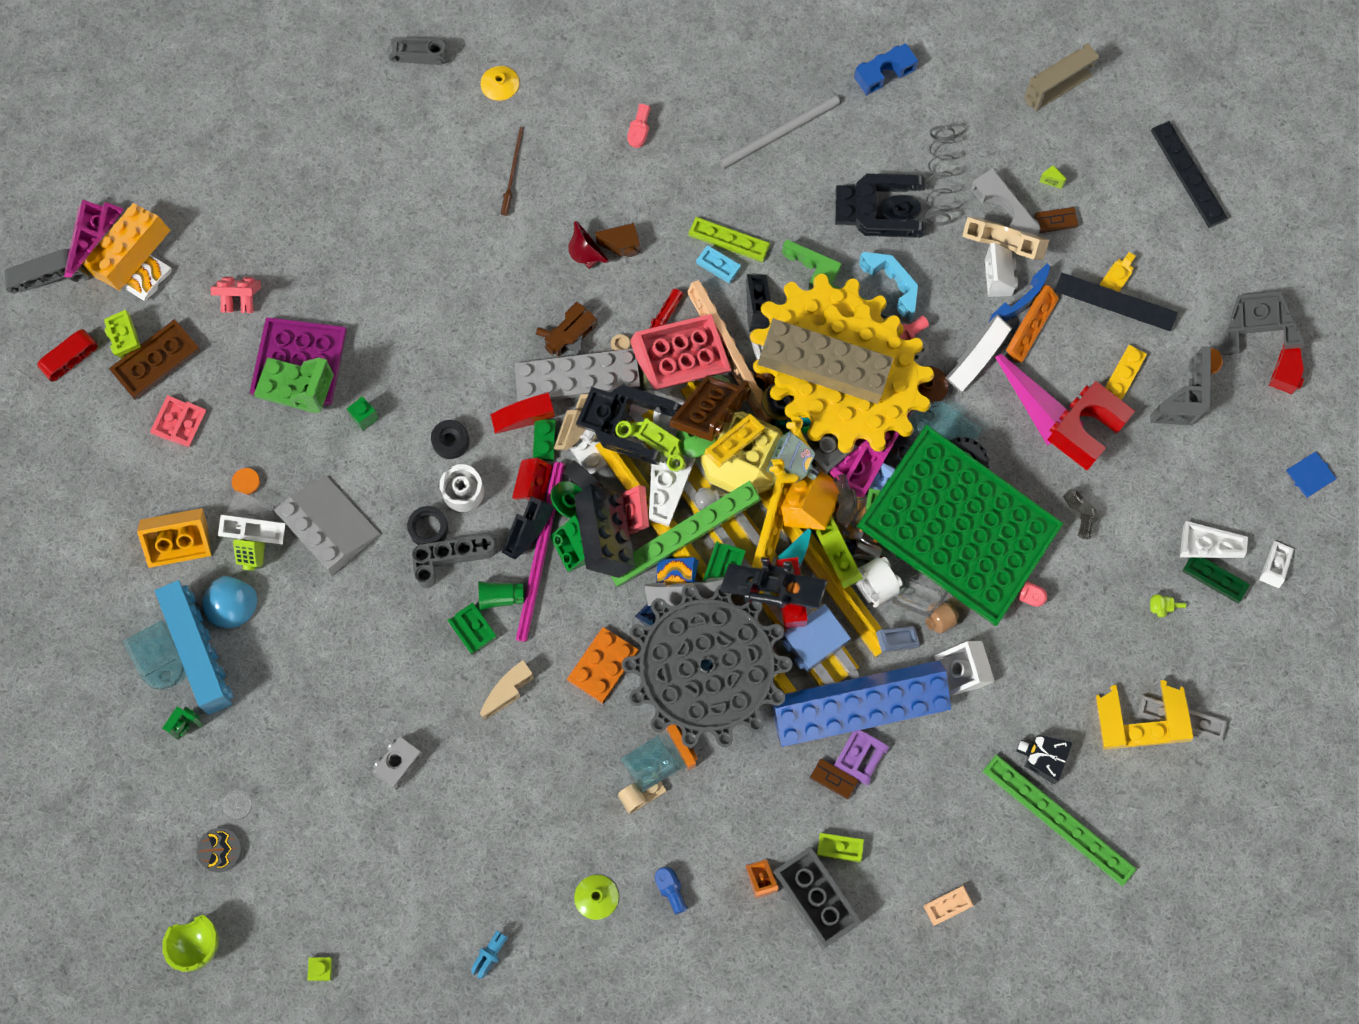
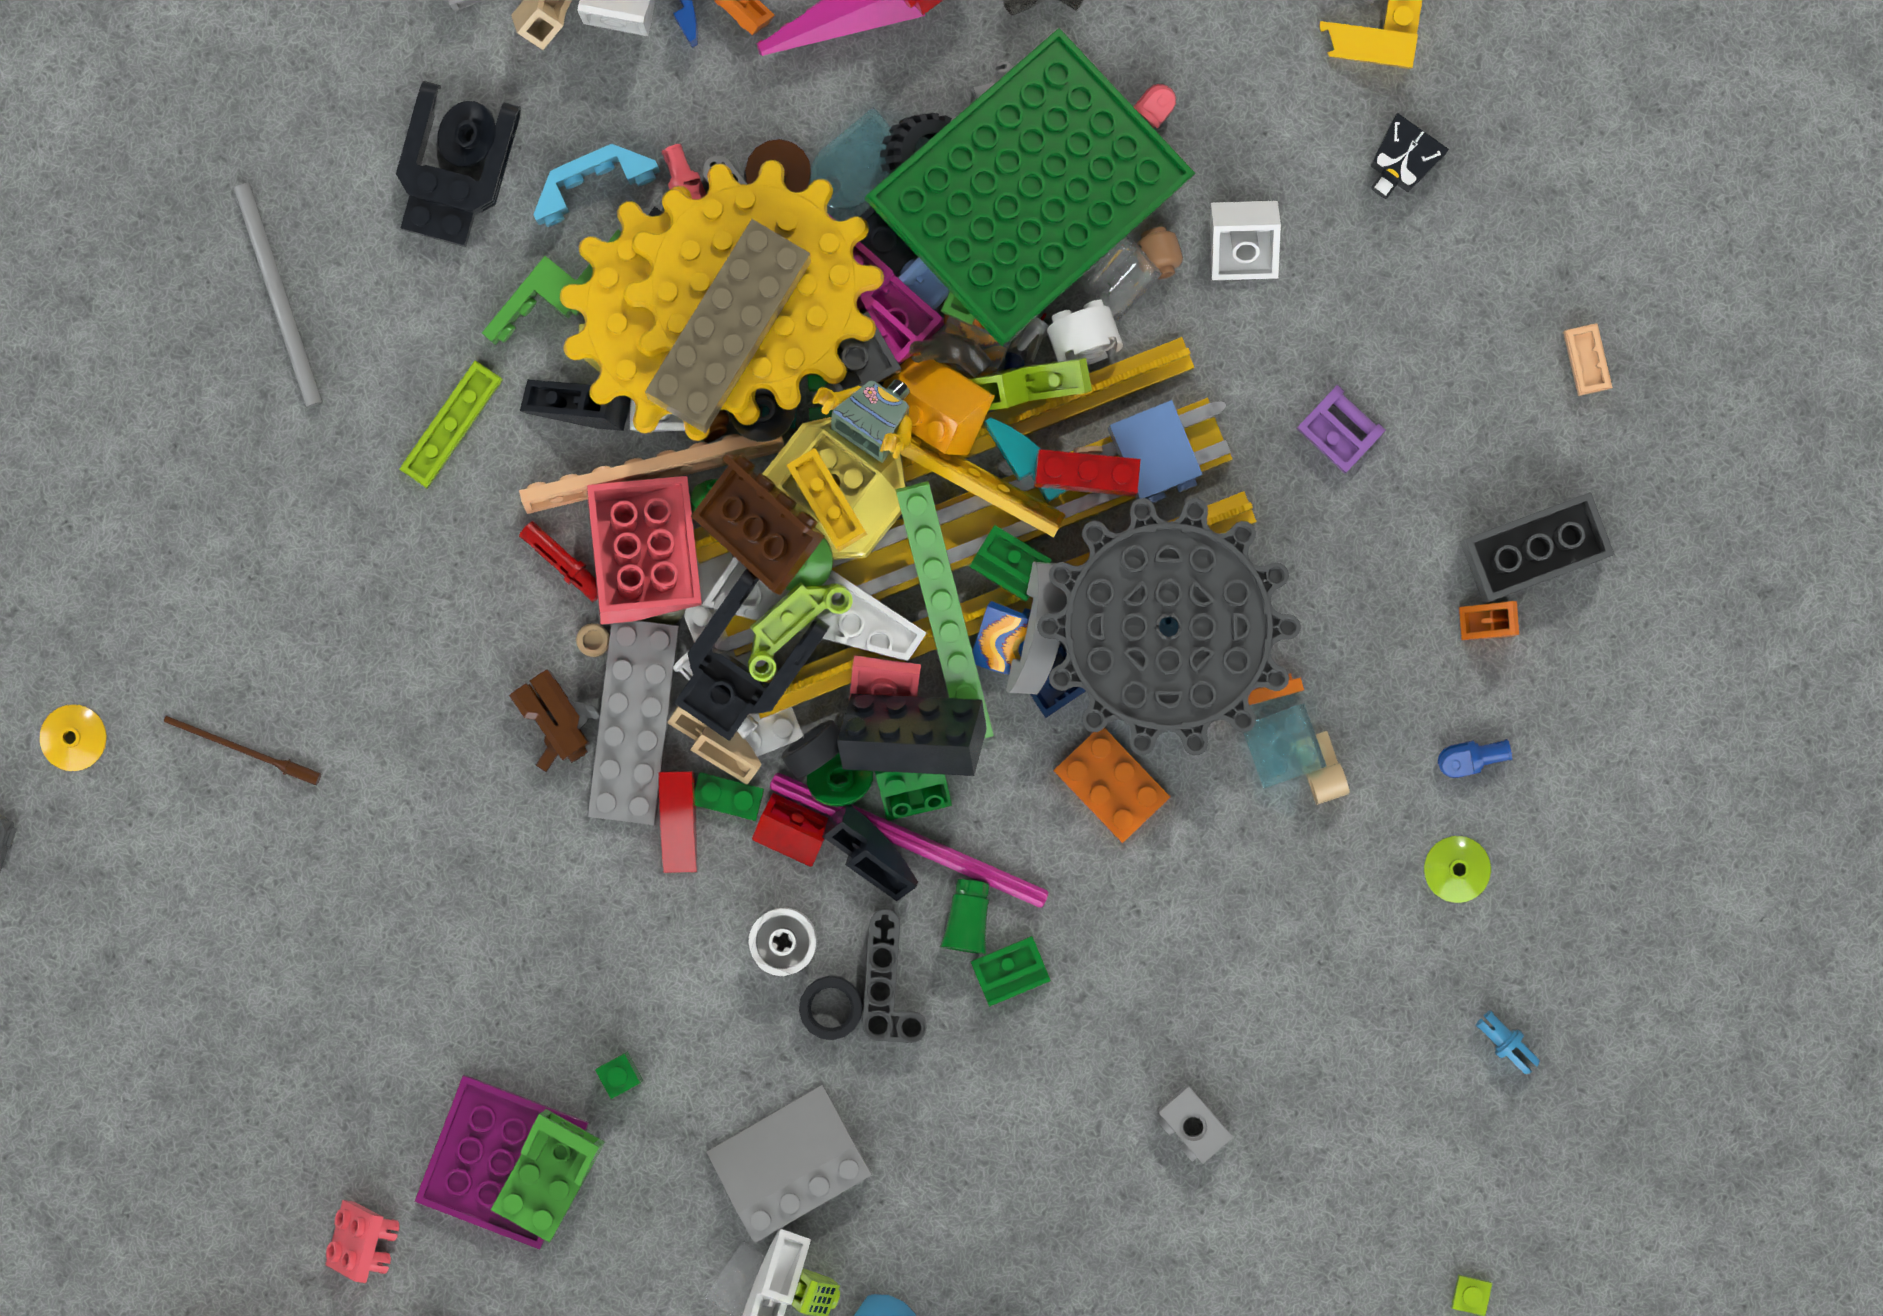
camera: 75 degrees left, 15 degrees up
(246, 481) = (687, 1280): orange piece -> none
(446, 428) = (674, 944): black tyre -> none
(506, 690) = (1119, 937): tan slope -> none
(583, 248) = (415, 661): dark red hat -> none
(620, 240) = (415, 599): reddish brown slope -> none
(639, 128) = (217, 524): coral arm -> none
(706, 496) = (895, 562): light grey piece -> none
(718, 264) = (493, 452): medium azure plate -> none
(791, 588) = (1071, 489): black piece -> none
(834, 779) = (1364, 478): reddish brown tile -> none
(840, 847) = (1468, 495): lime plate -> none
(862, 703) = (1268, 406): brick -> none
(898, 59) = (197, 64): blue arch -> none
(898, 639) = (1178, 327): sand blue tile -> none
(936, 138) = (501, 71): dark grey piece -> none
(979, 353) = (752, 82): white slope -> none
(1059, 820) = (1498, 164): bright green tile -> none

